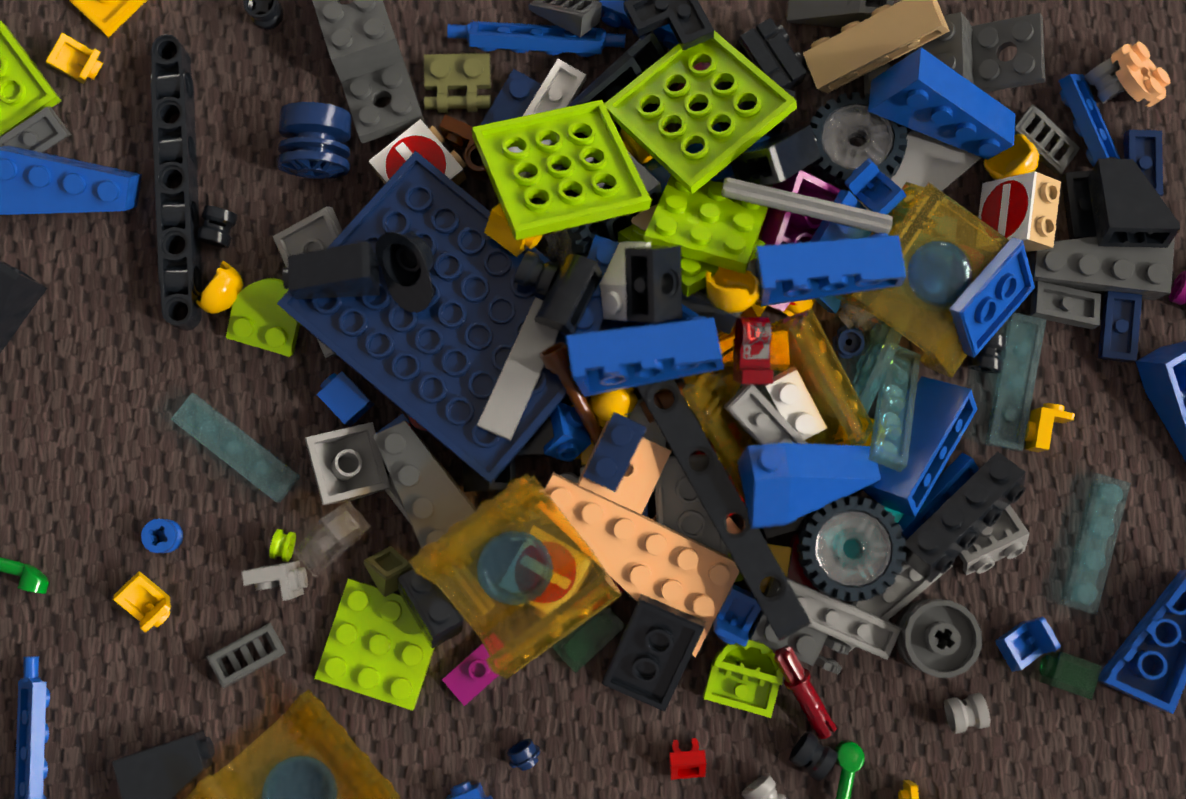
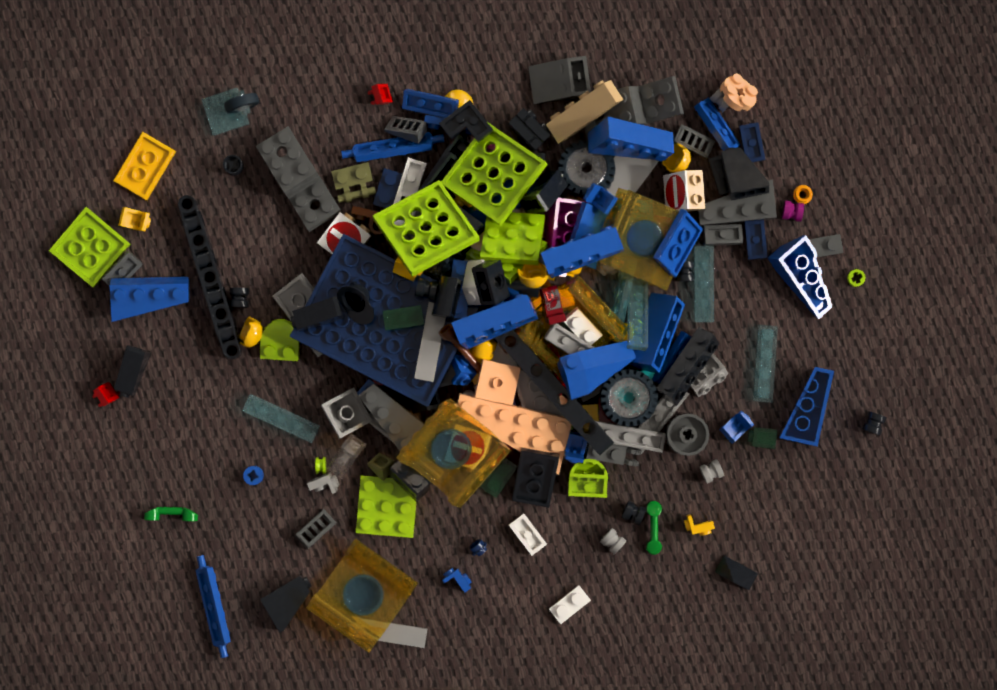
camera: 10 degrees left, 5 degrees up
(144, 601) = (253, 512): yellow bracket -> none
(314, 140) = (283, 237): dark blue wheel -> none
(344, 398) = (334, 377): blue brick -> none
(470, 676) = (440, 511): magenta plate -> none
(483, 315) = (403, 318): none -> clear green plate
(615, 452) = (490, 375): dark blue plate -> none
(616, 751) = (527, 534): none -> white plate
(688, 763) = (567, 531): red tile -> none
(799, 682) = (615, 473): dark red axle -> none
(806, 205) = (564, 218): light grey axle -> none
(856, 346) = (606, 287): dark blue plate -> none
(1041, 425) = (720, 308): yellow bracket -> none

